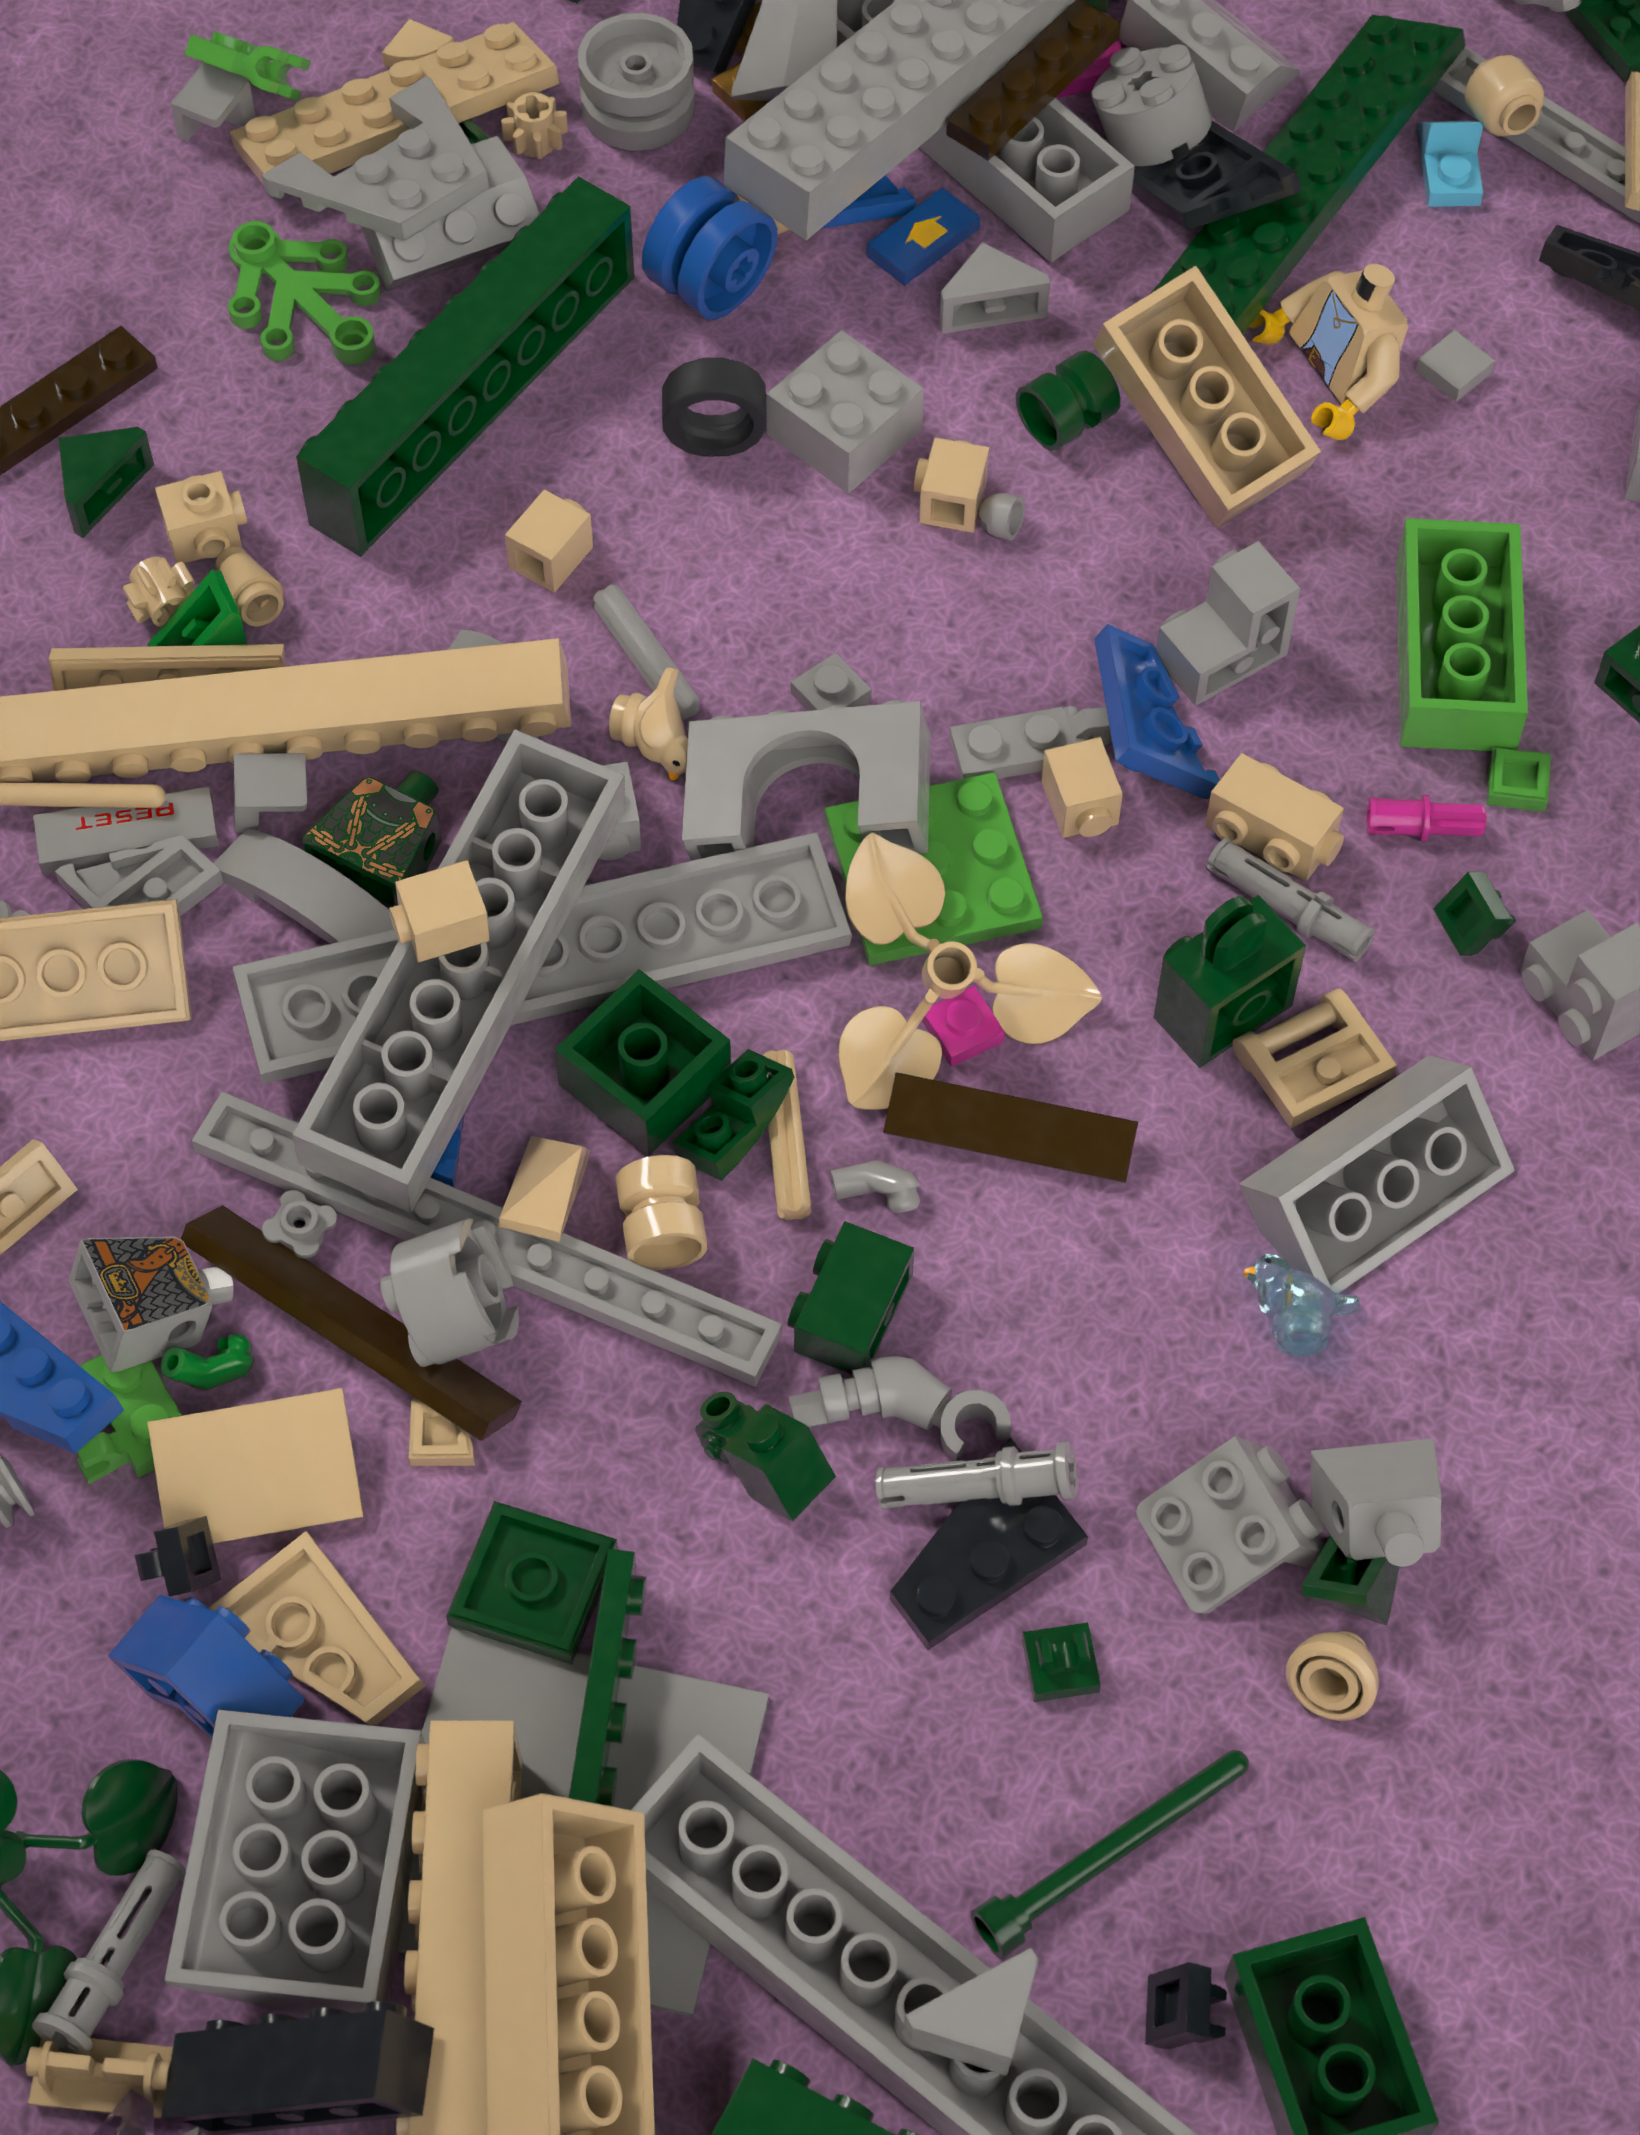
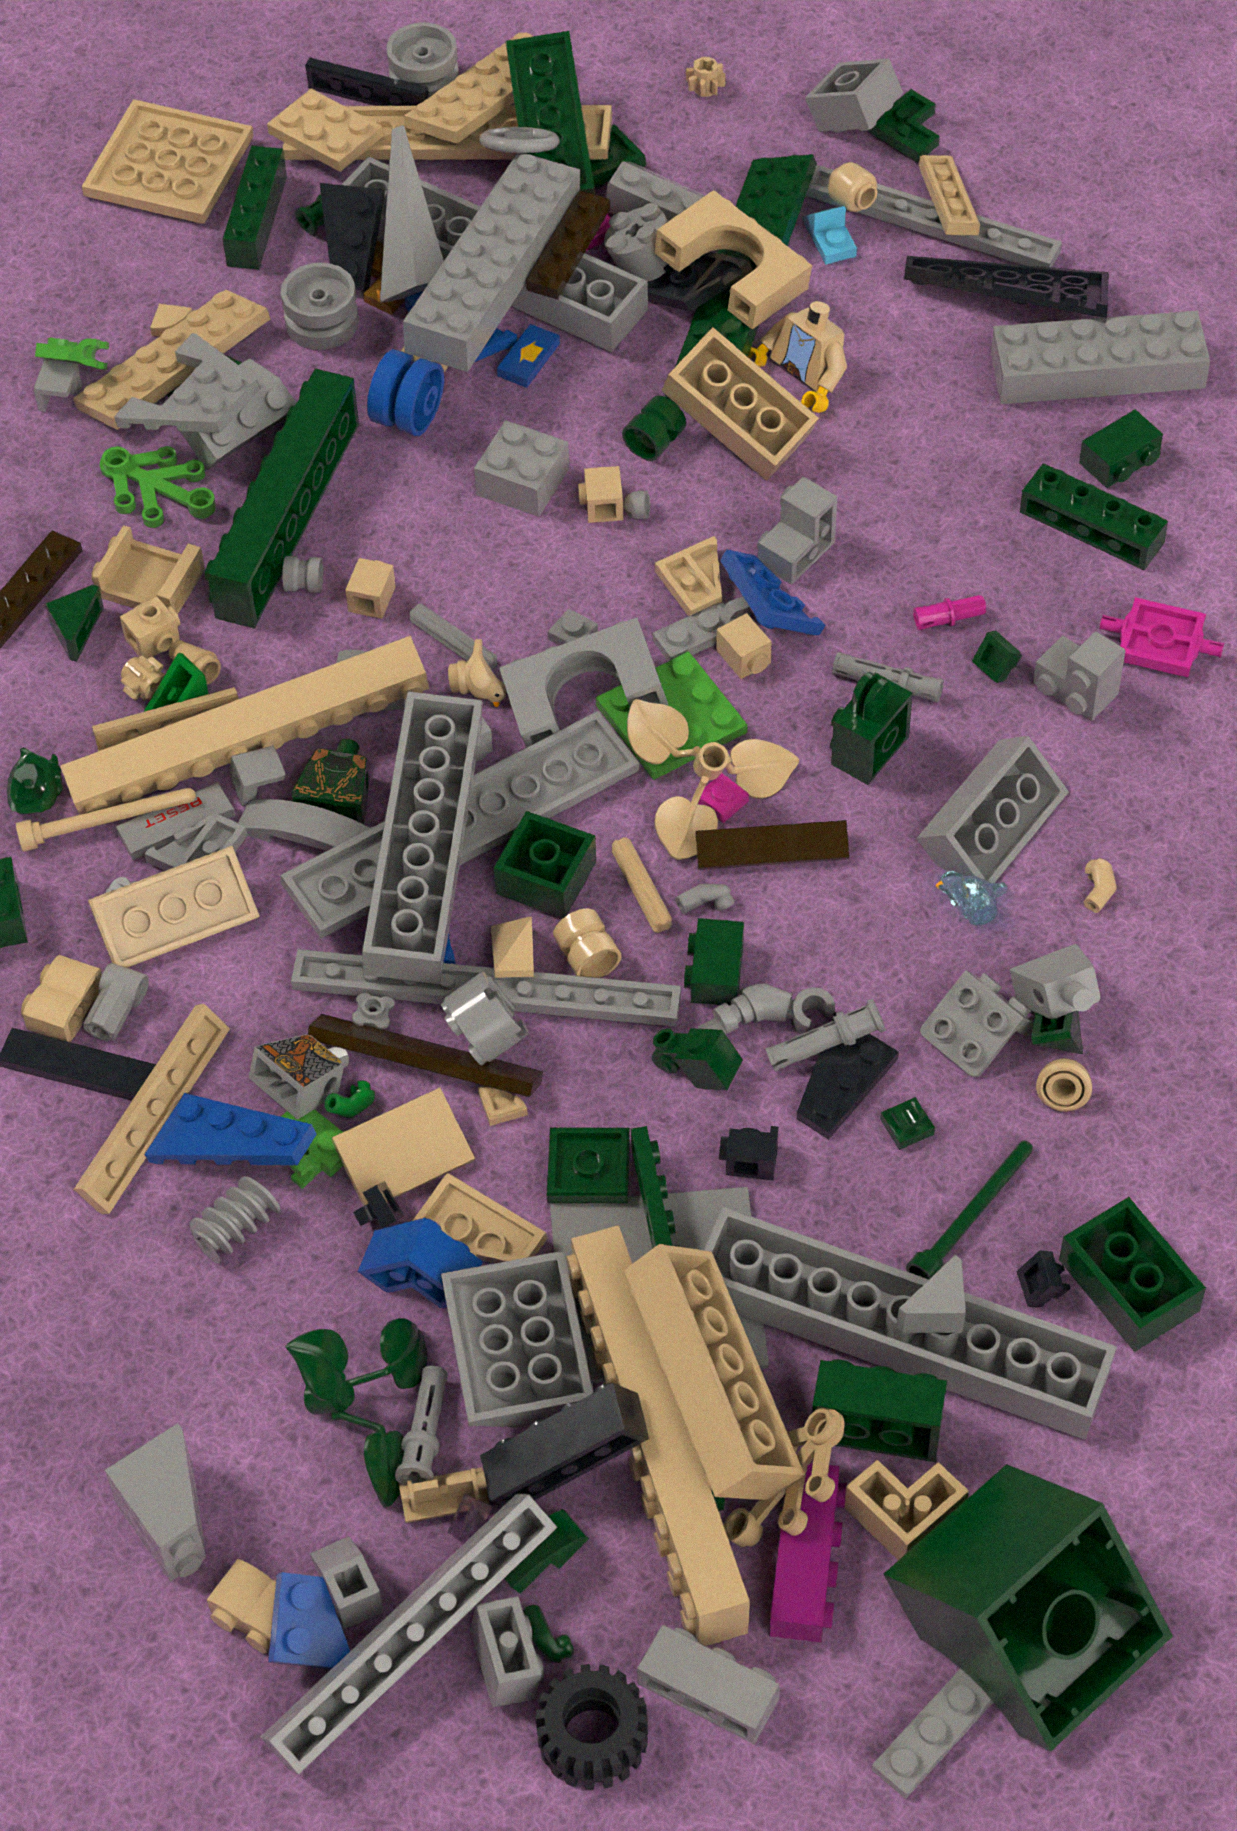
camera: 15 degrees left, 5 degrees down
(229, 426) = (139, 572): none -> tan panel
(440, 911) = (406, 802): tan brick -> none
(457, 492) = (303, 574): none -> light grey wheel
(534, 125) = (264, 347): tan gear -> none
(707, 381) = (441, 467): black tyre -> none
(742, 1108) = (611, 878): dark green slope -> none
(791, 1639) = (750, 1152): none -> black brick
(993, 292) = (585, 376): light grey slope -> none
(1046, 652) = (693, 576): none -> tan wing
(1272, 105) = (717, 225): none -> tan arch
(1275, 818) = (864, 632): tan brick -> none
(1323, 1071) = (939, 768): tan plate -> none
(1455, 365) = (875, 352): light grey tile -> none
(1460, 635) = (935, 503): bright green brick -> none
(1518, 779) = (995, 576): bright green tile -> none
(1519, 1343) = (1104, 881): none -> tan arm

